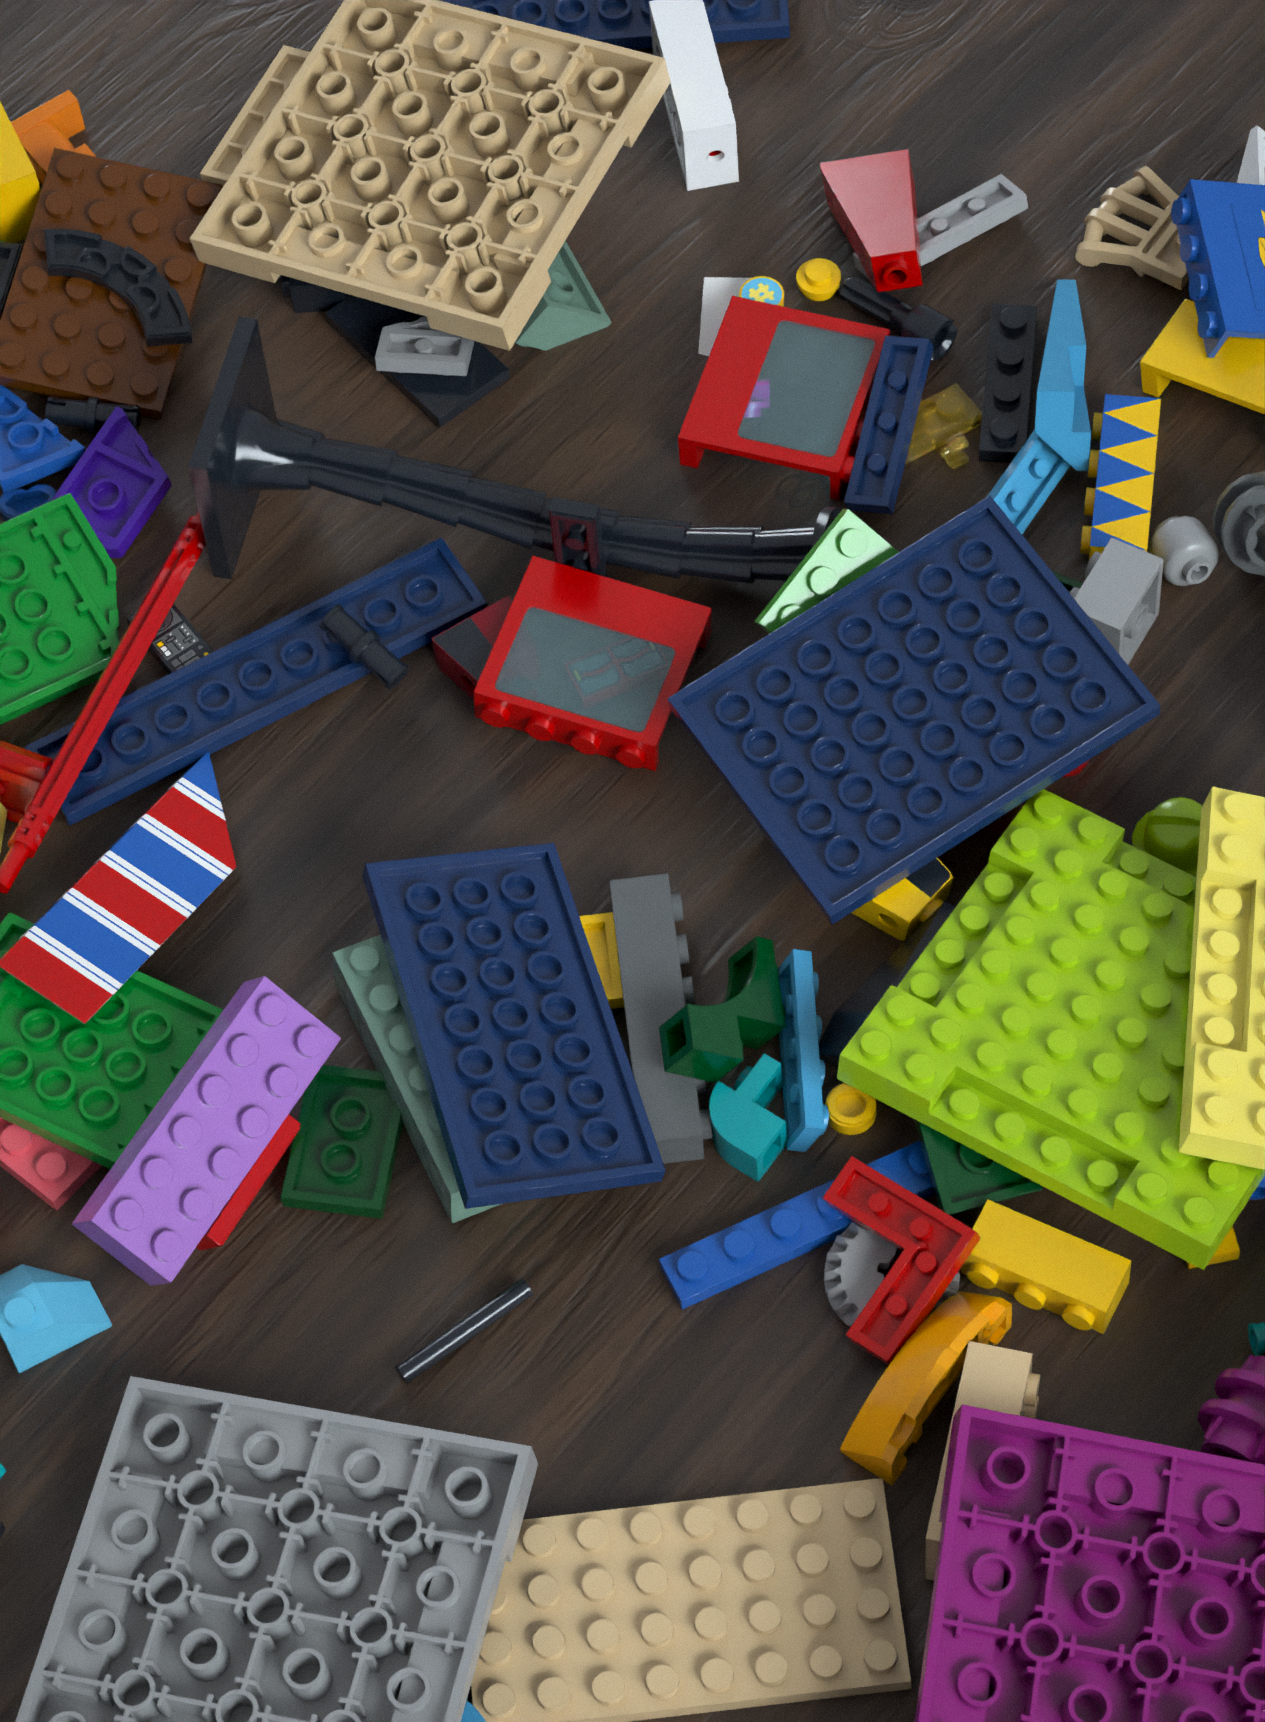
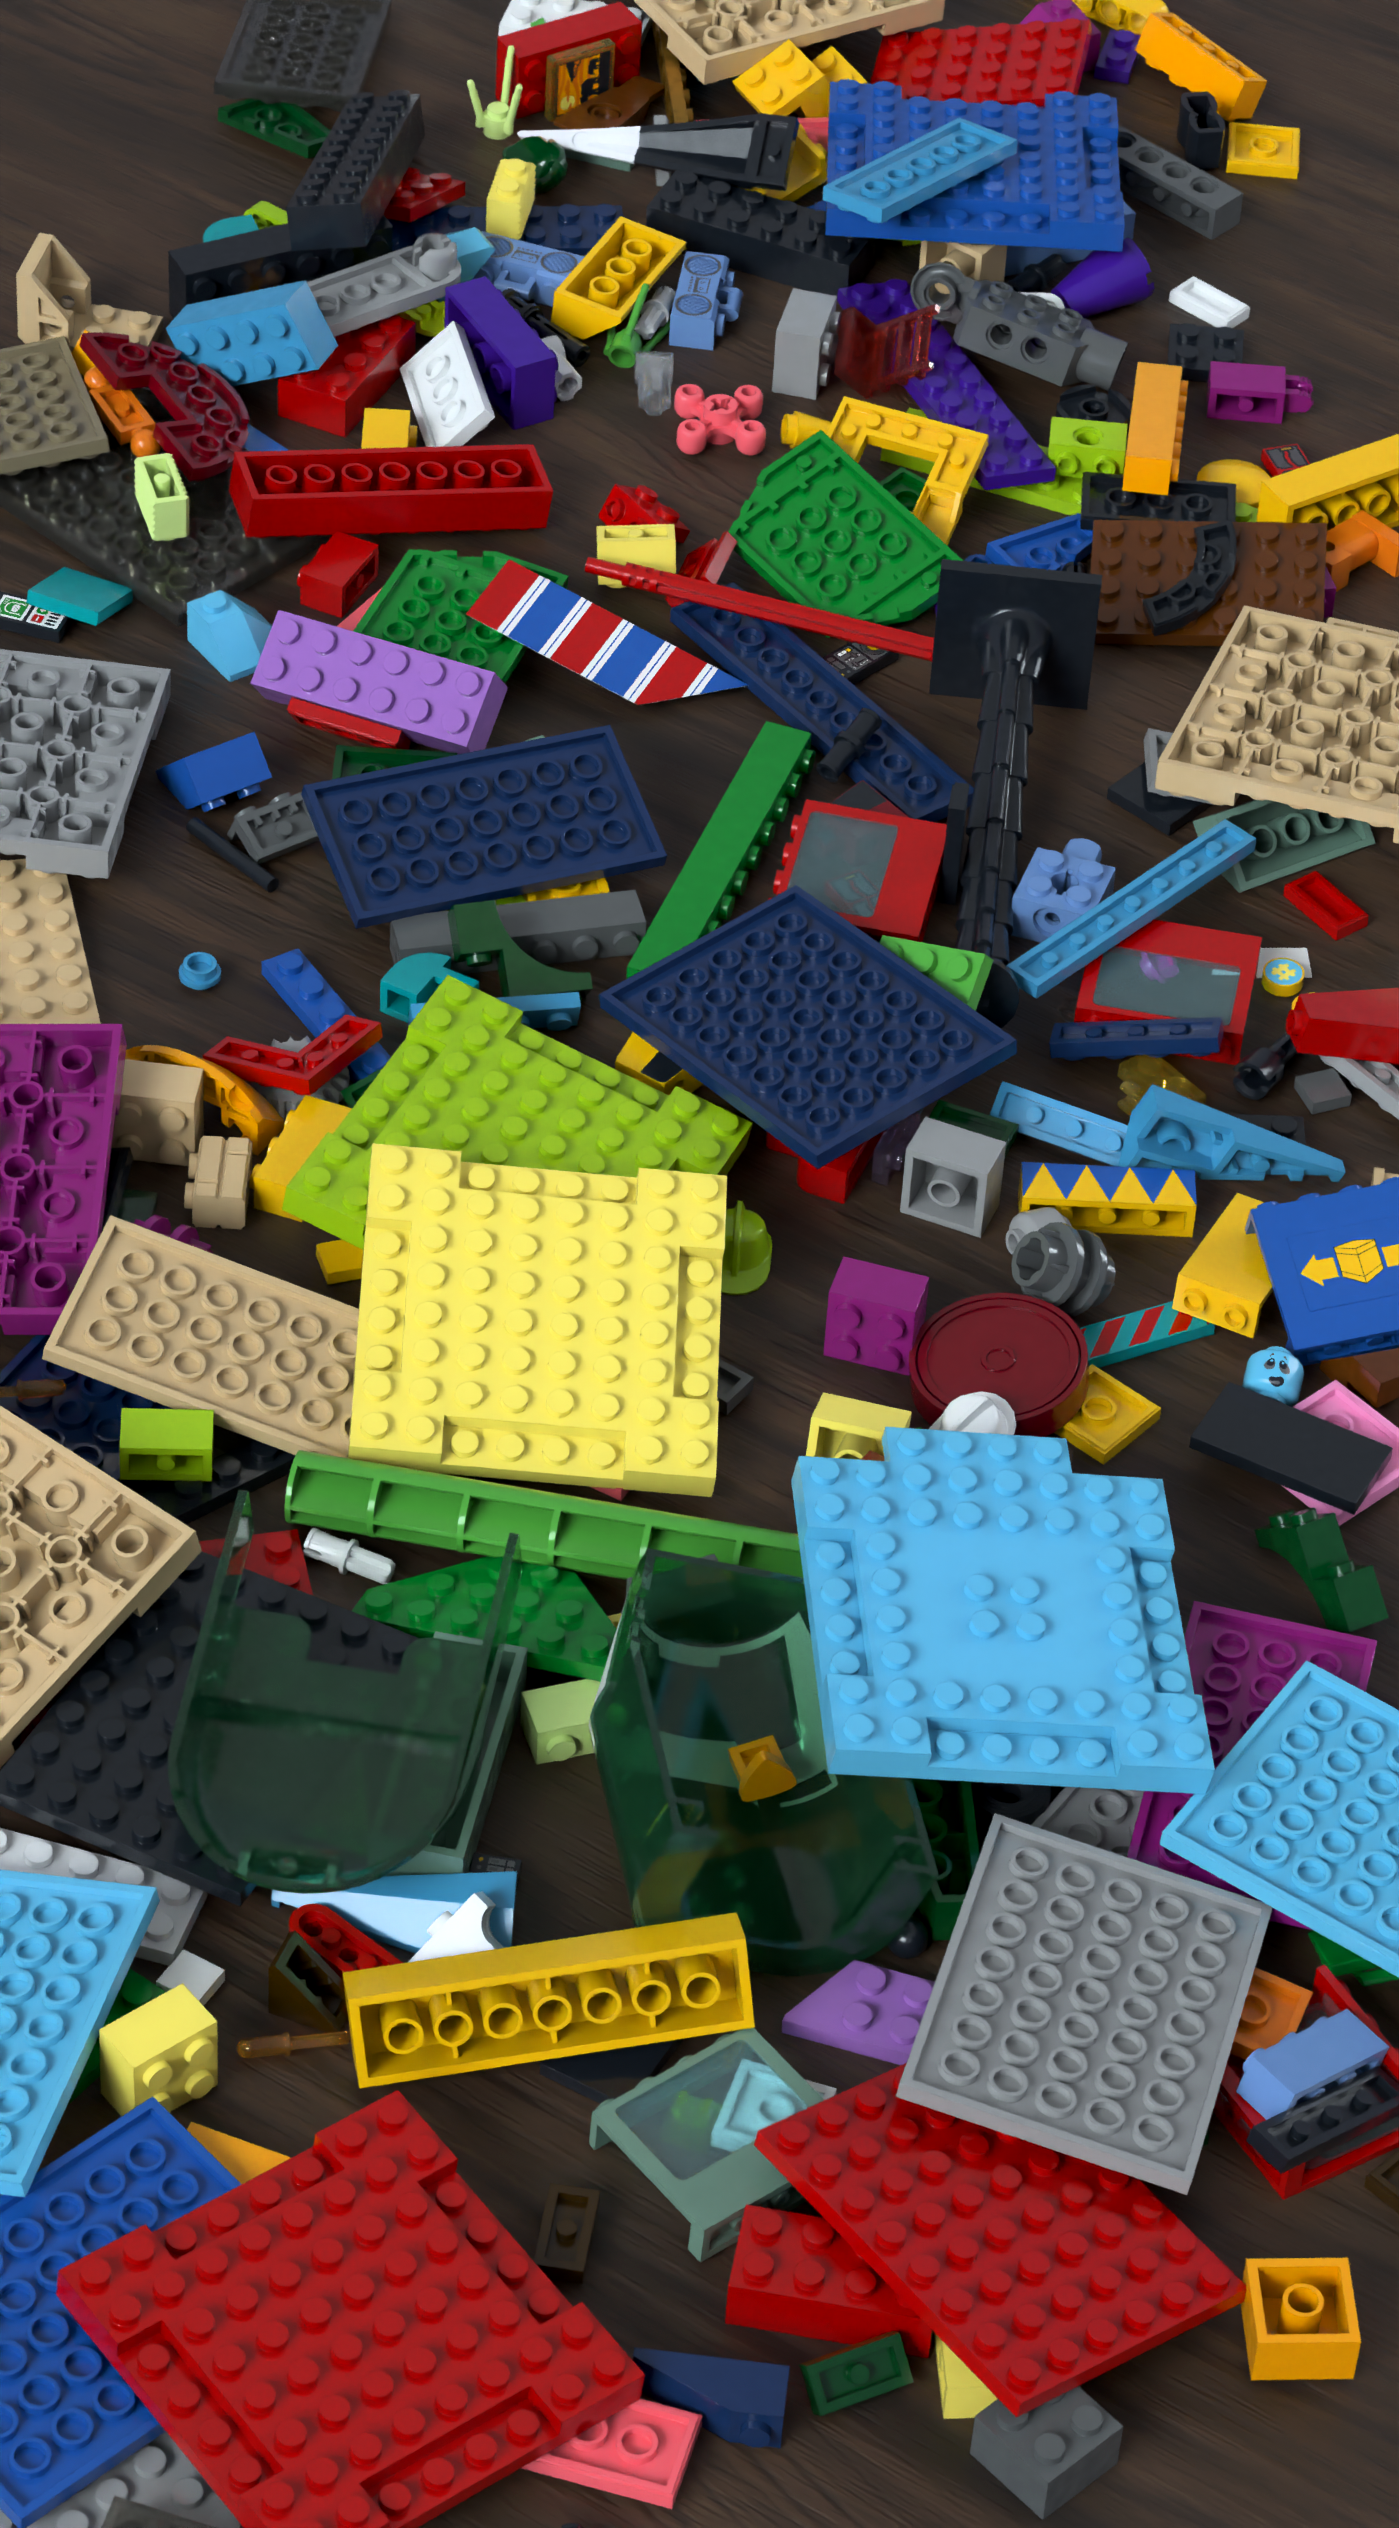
camera: 75 degrees right, 15 degrees down
(317, 1338) = (216, 773): none -> blue slope
(429, 1272) = (274, 828): none -> dark grey bracket
(544, 800) = (729, 844): none -> green brick
(612, 468) = (1060, 889): none -> medium blue brick
(643, 250) = (1326, 905): none -> red tile
(691, 1374) = (199, 971): none -> dark azure plate
(698, 400) = (1131, 908): none -> dark azure plate
(945, 285) = (1322, 1091): none -> dark grey tile
(1087, 1358) = (220, 1183): none -> tan brick

